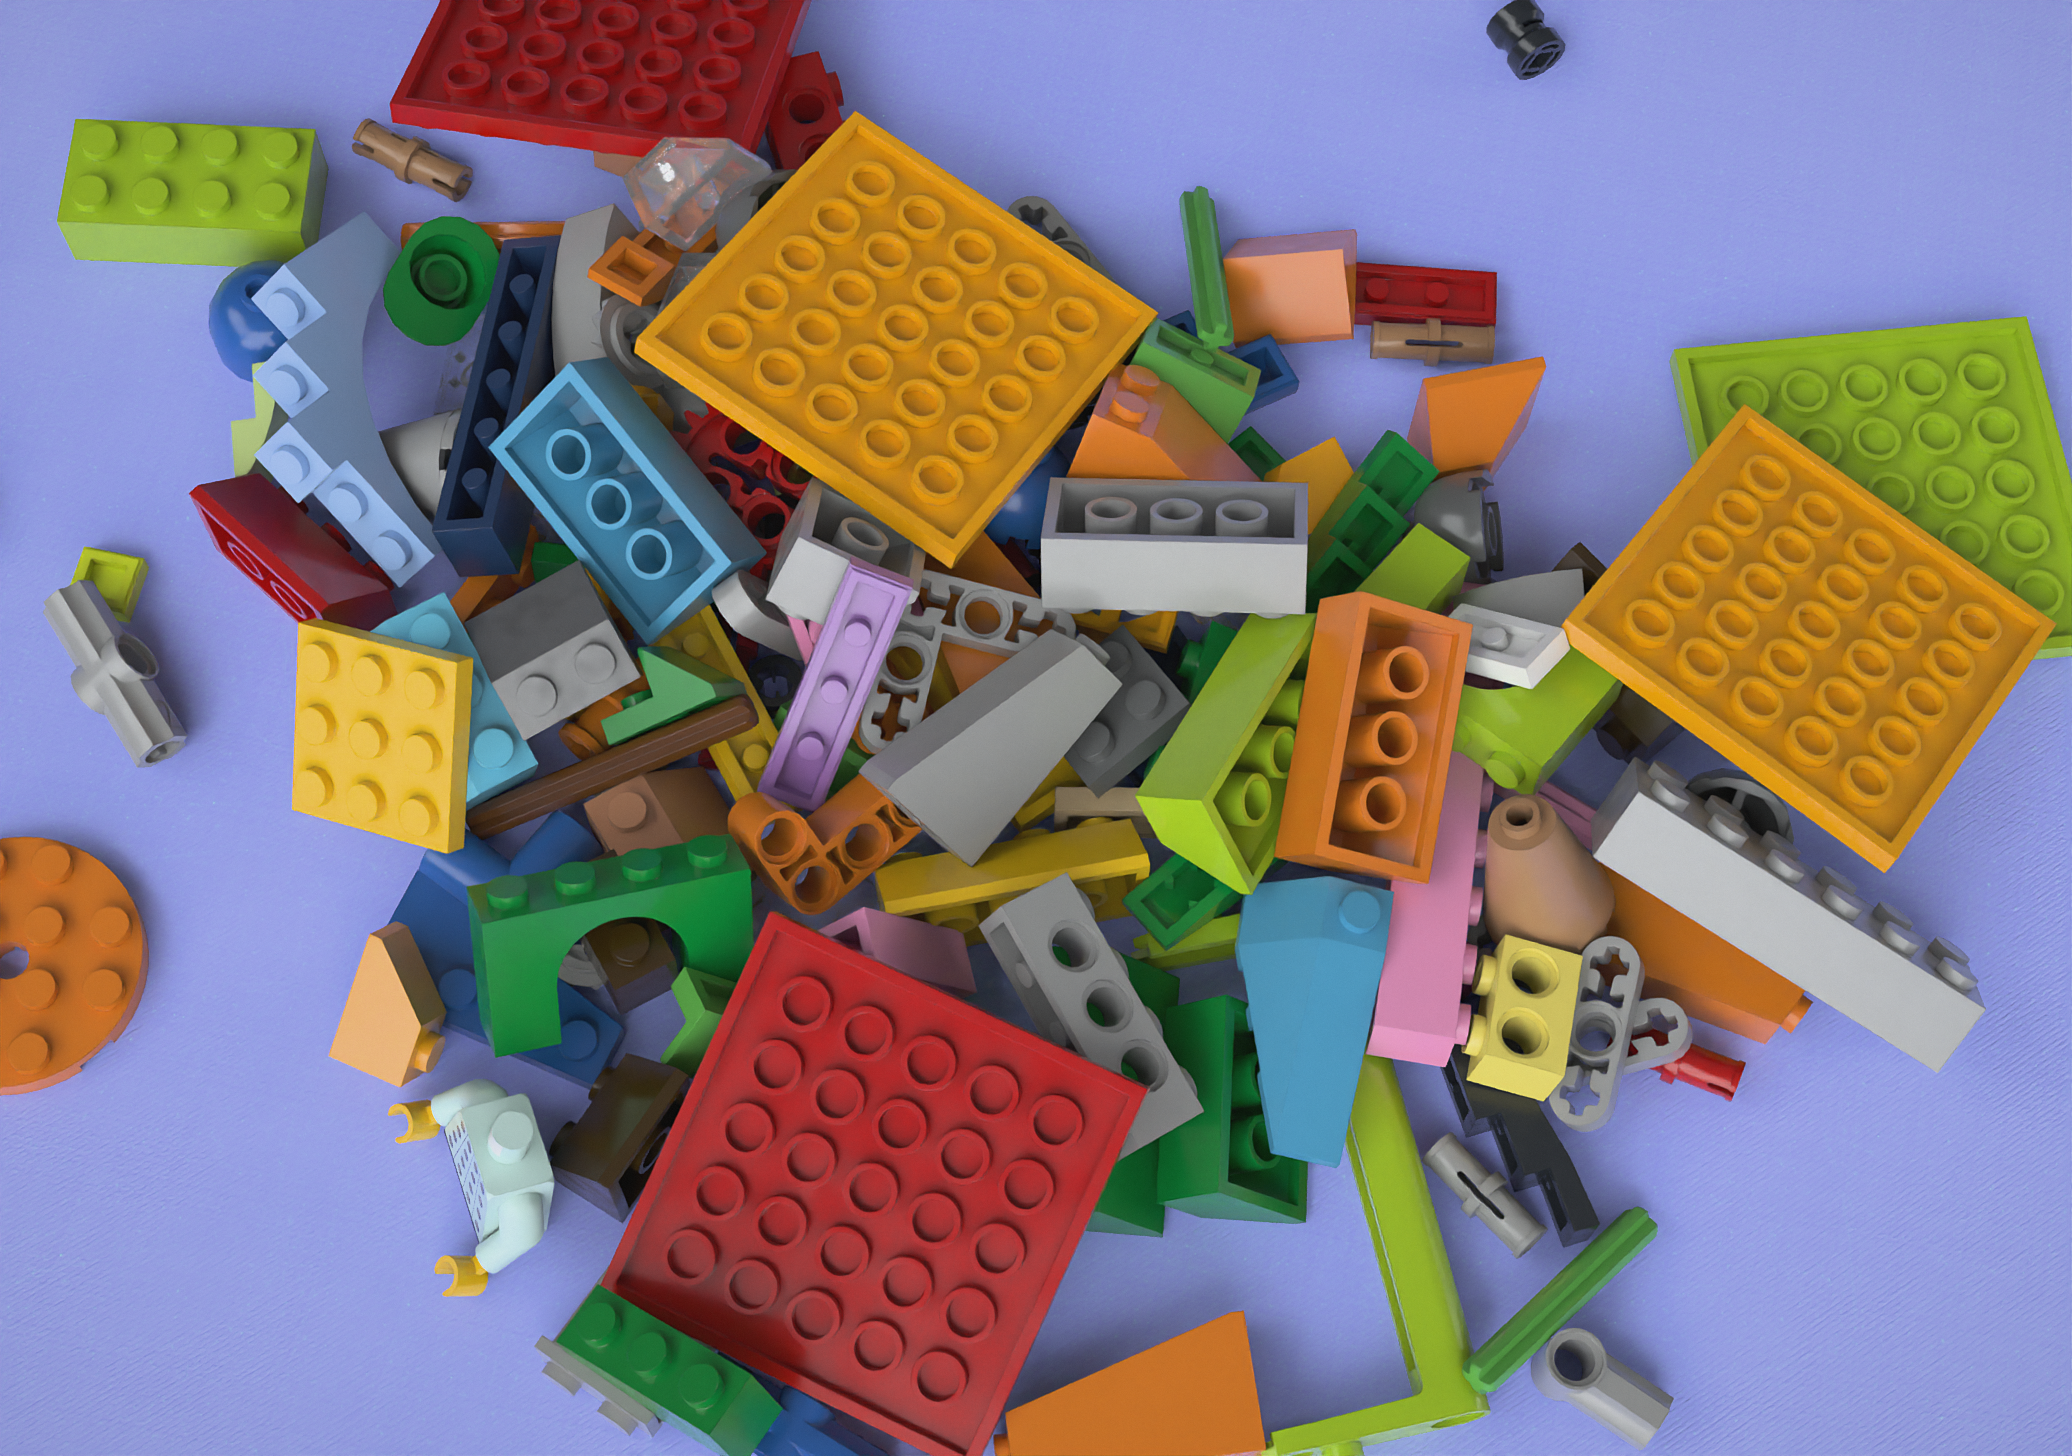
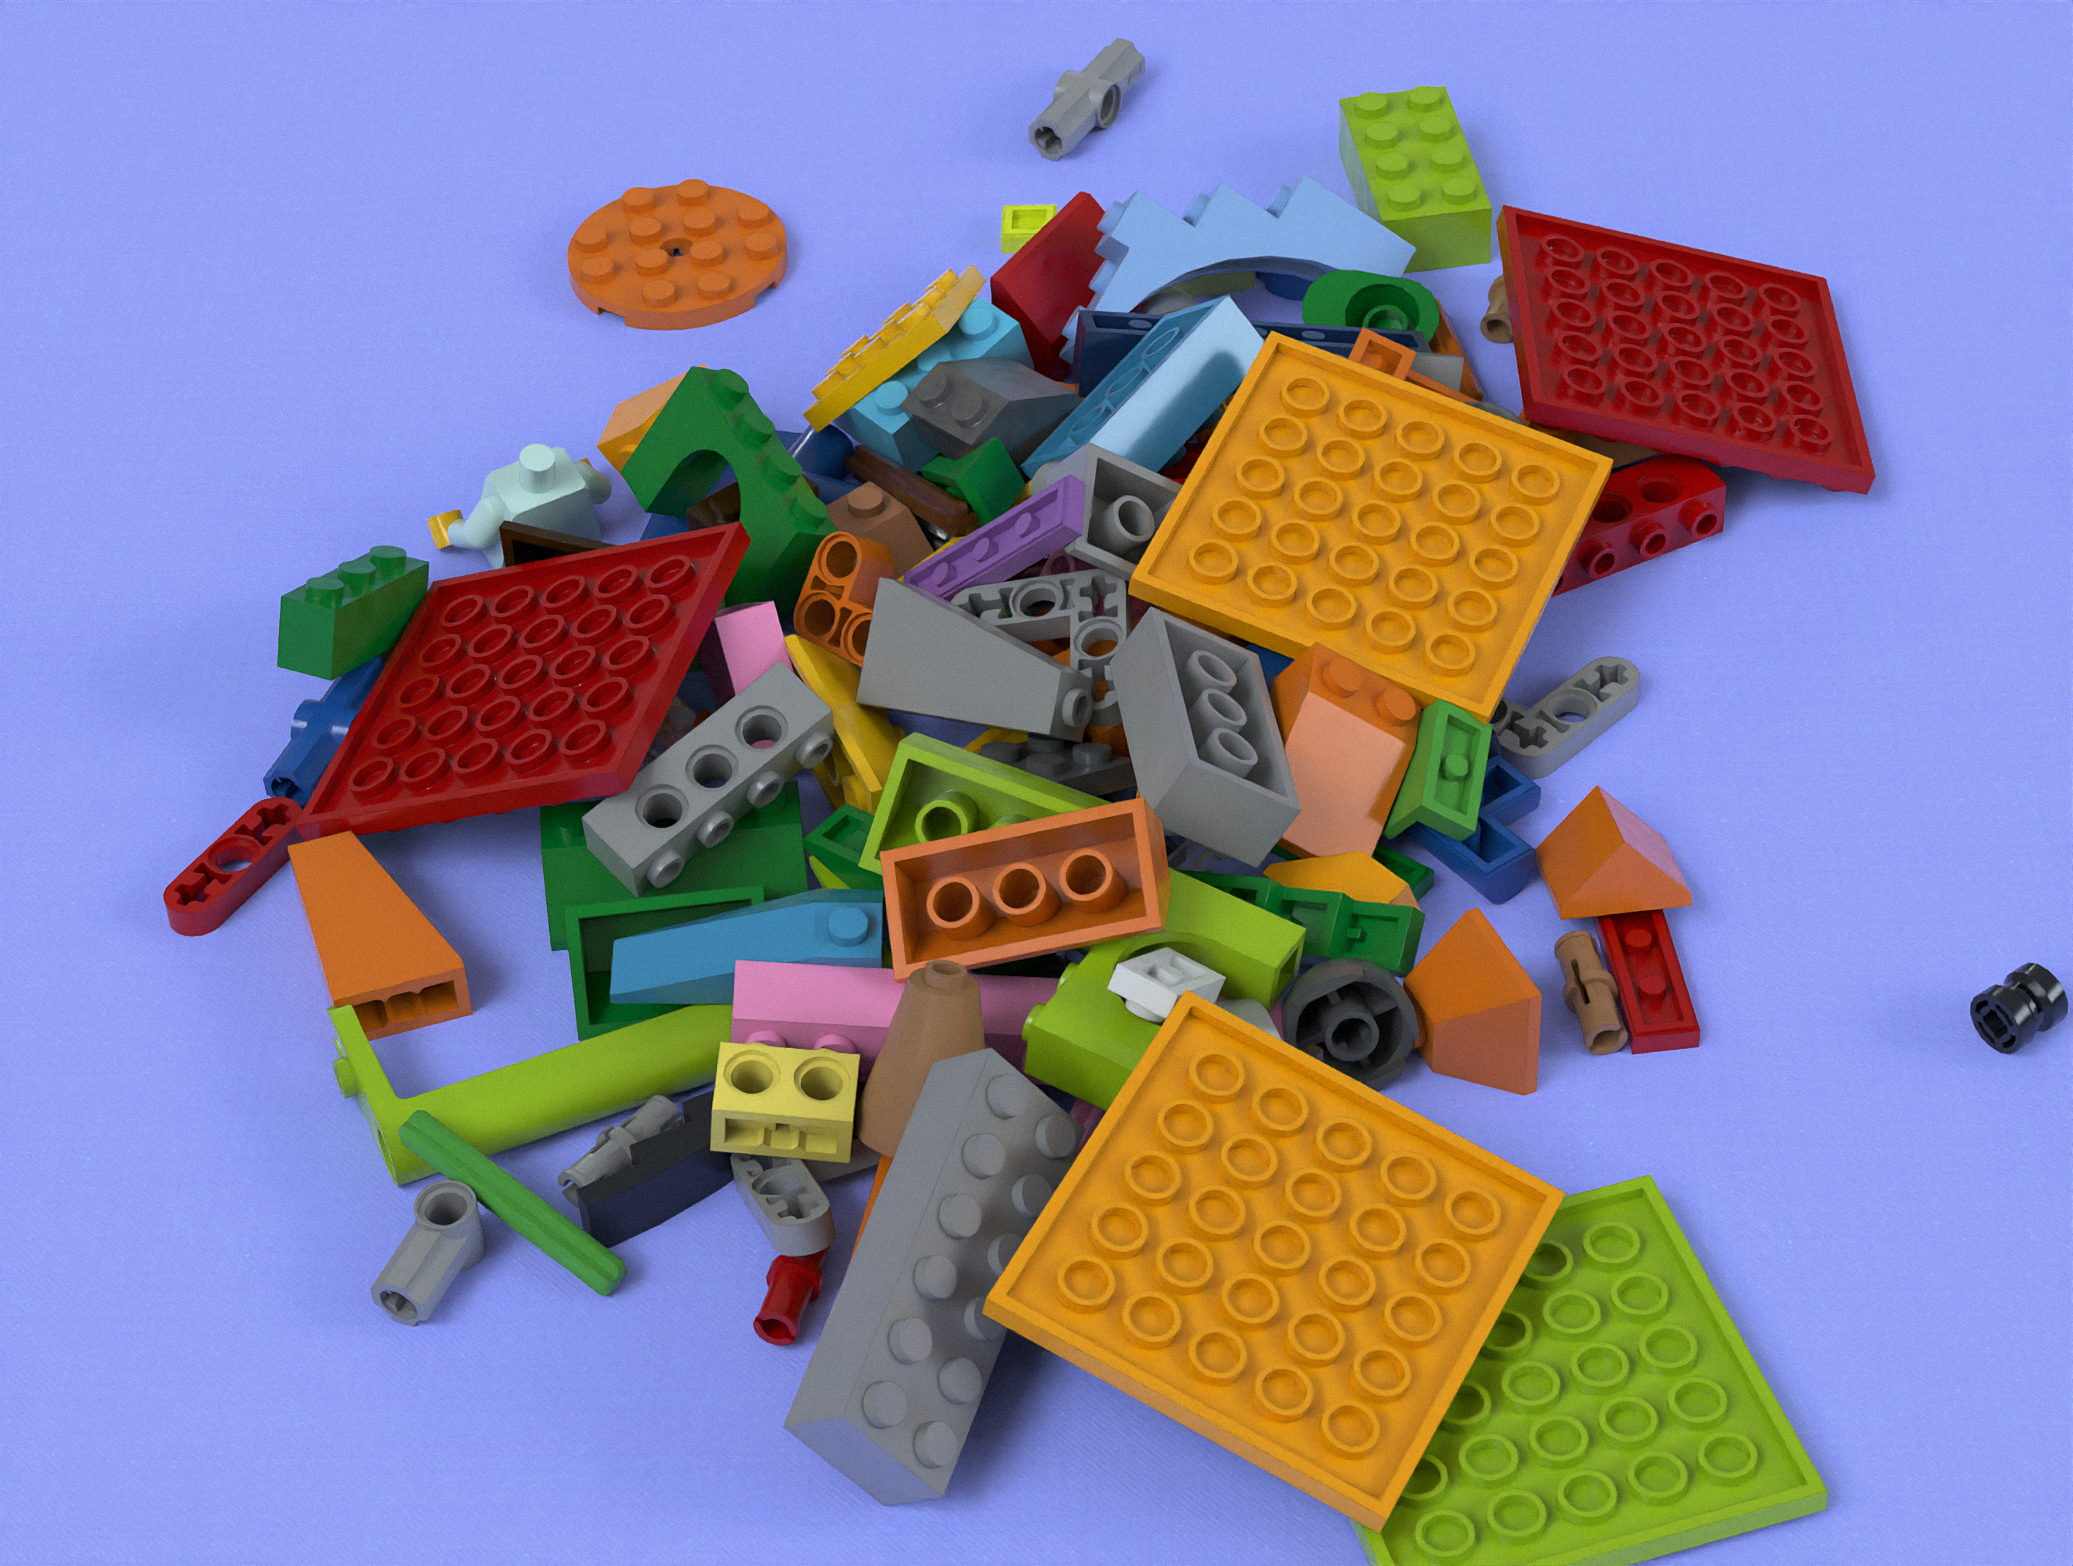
camera: 85 degrees right, 25 degrees down
(114, 673) = (914, 250): light grey piece -> none
(688, 183) = (1481, 374): clear slope -> none
(1206, 269) = (1578, 778): bright green axle -> none
(1623, 989) = (783, 1167): light grey beam -> none

